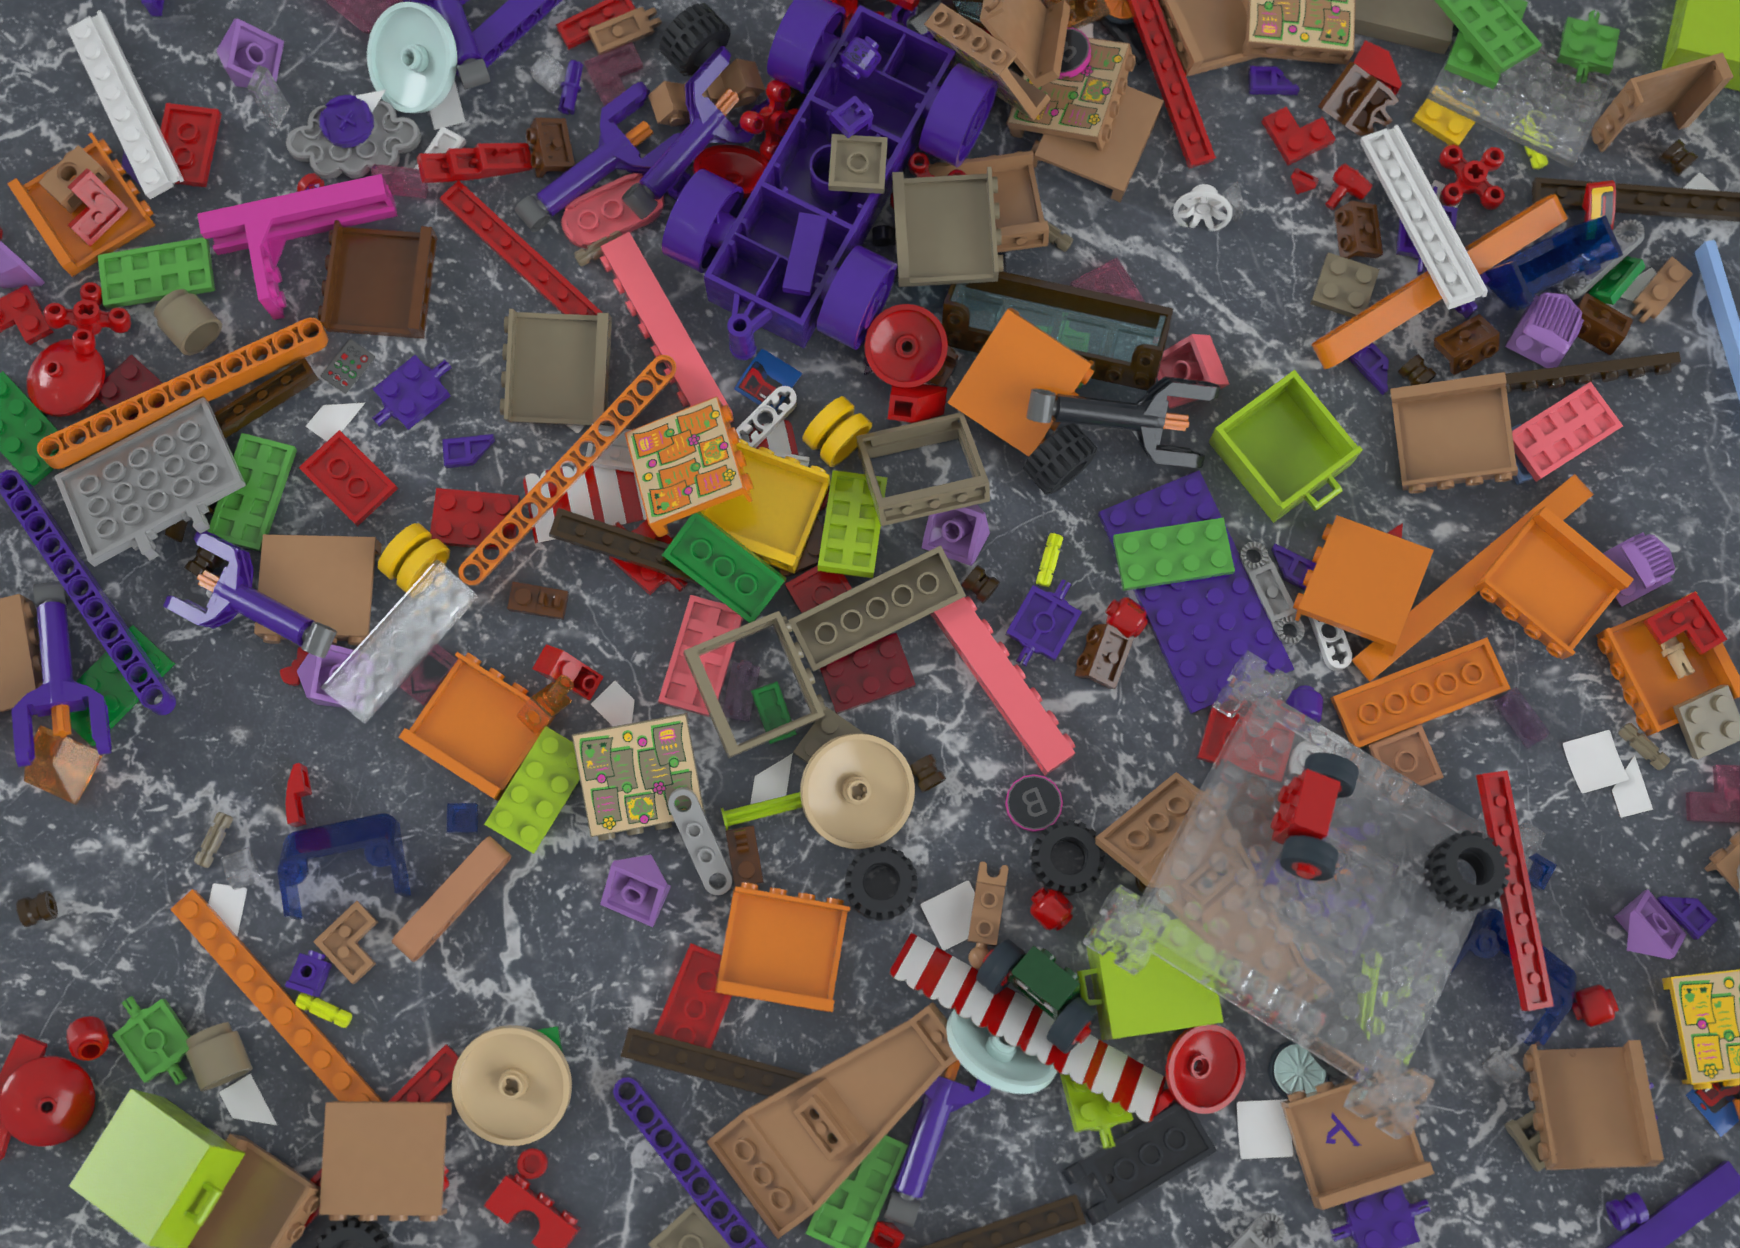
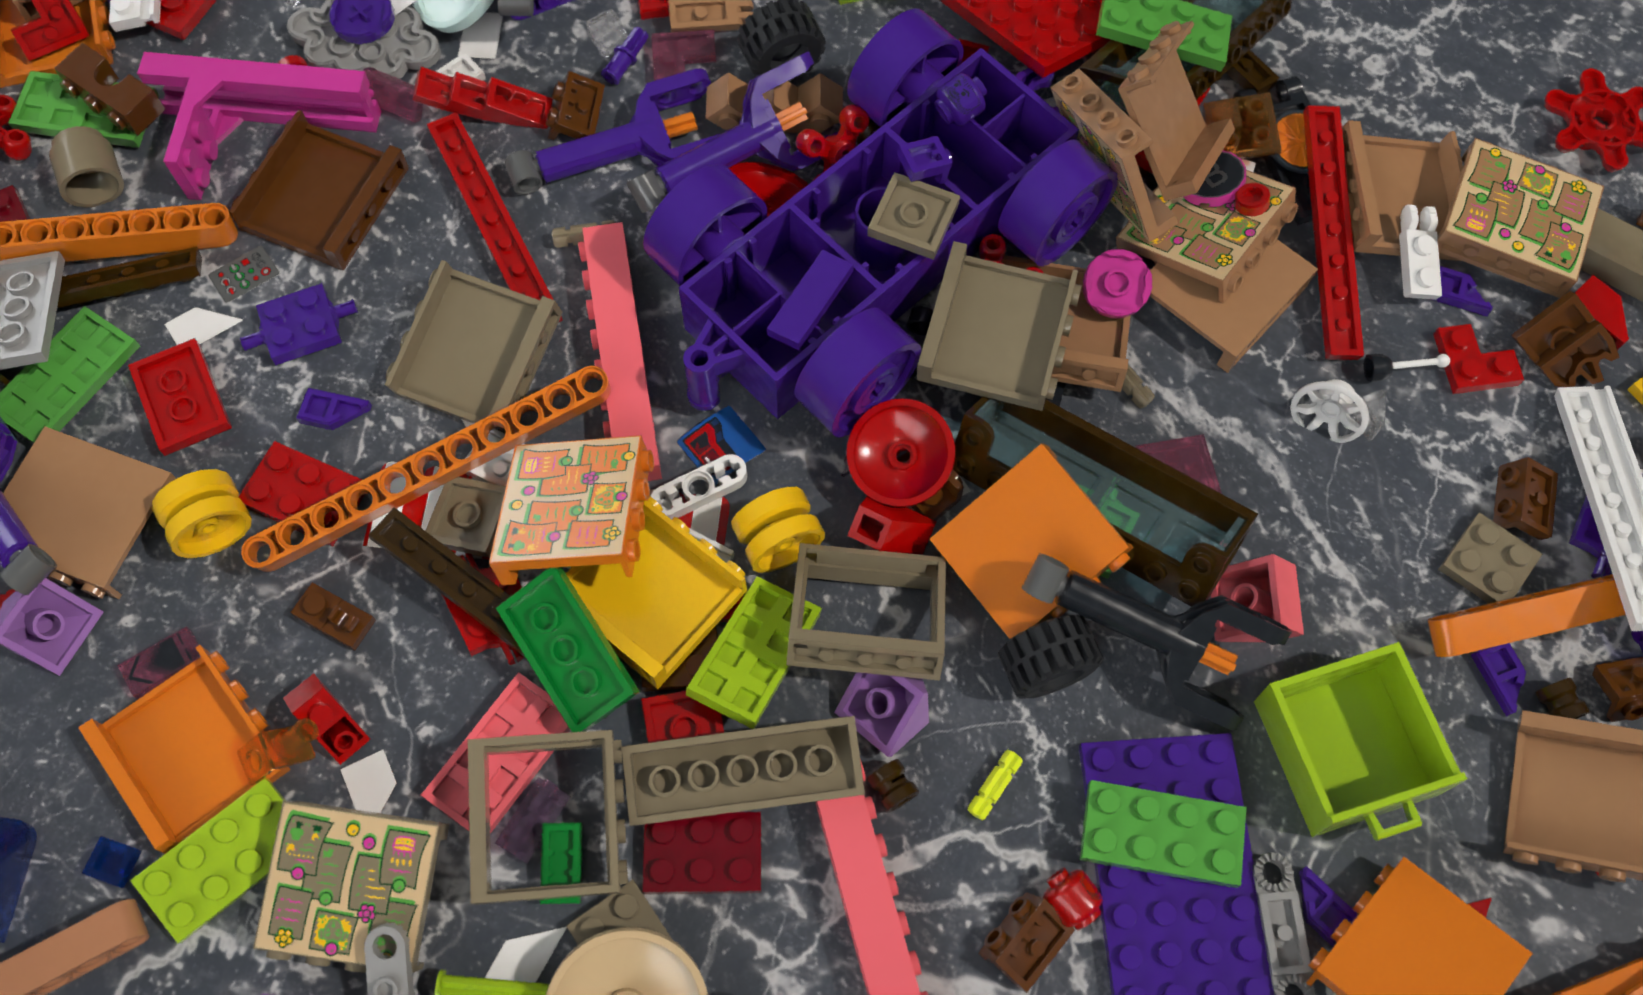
camera: 20 degrees right, 10 degrees down
(197, 260) = (91, 77): none -> reddish brown arch
(400, 641) = (138, 610): clear plate -> none
(604, 212) = (600, 197): coral tile -> none
(609, 494) = (467, 516): none -> dark tan plate
(1019, 161) = (1117, 283): none -> dark pink tile
(1043, 623) = (959, 867): dark purple plate -> none
(1100, 63) = (1252, 199): none -> red tile
(1229, 162) = (1380, 367): none -> black hinge
(1235, 63) = (1420, 253): none -> white hinge
(1303, 181) = (1468, 417): red slope -> none
(1348, 181) = (1528, 434): red piece -> none

